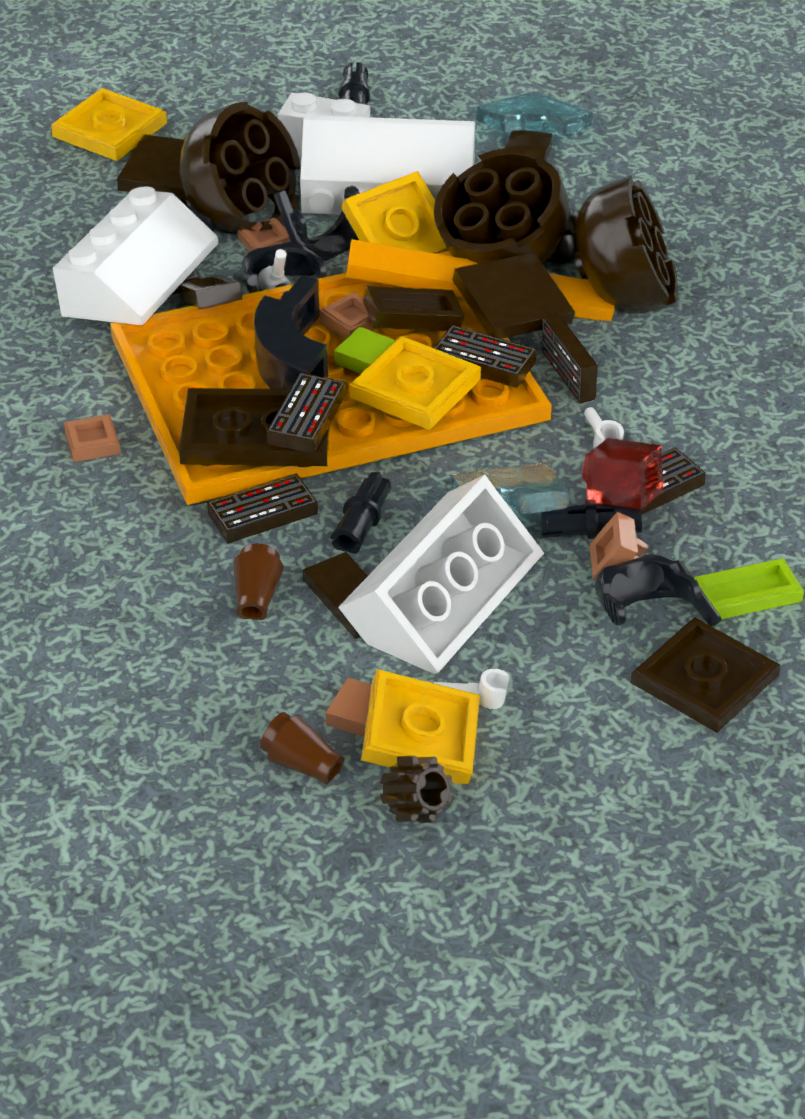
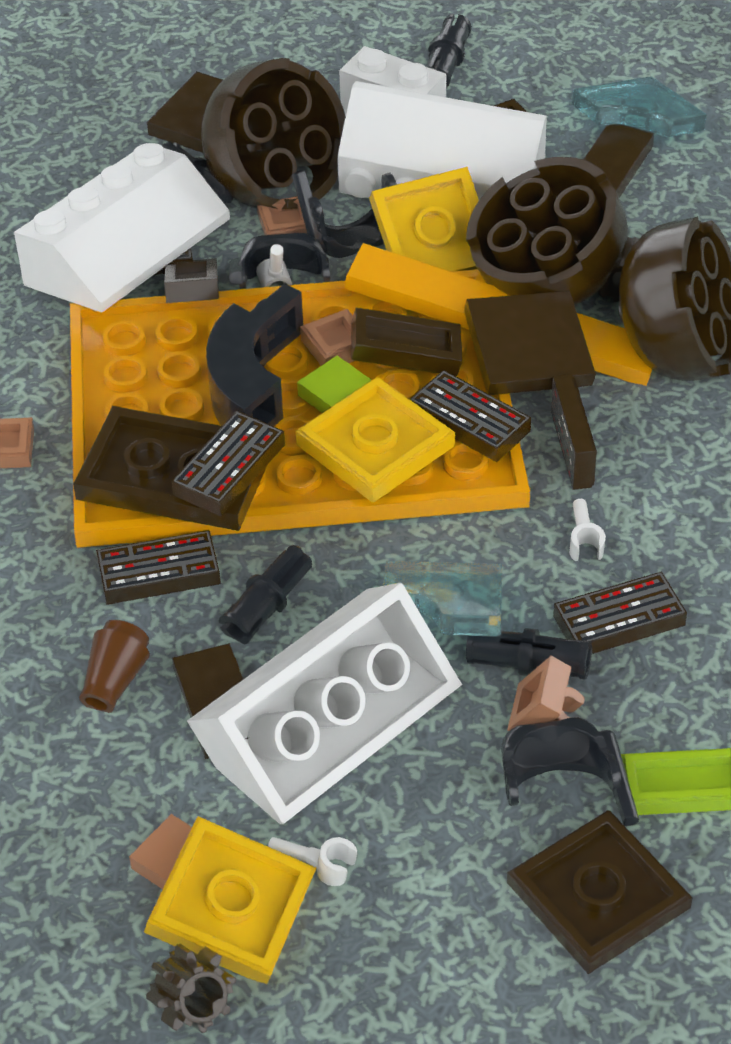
camera: 15 degrees right, 5 degrees up
(108, 124) = (163, 53): yellow plate -> none
(300, 748) = (81, 898): reddish brown cone -> none
(623, 473) = (576, 605): clear red brick -> none

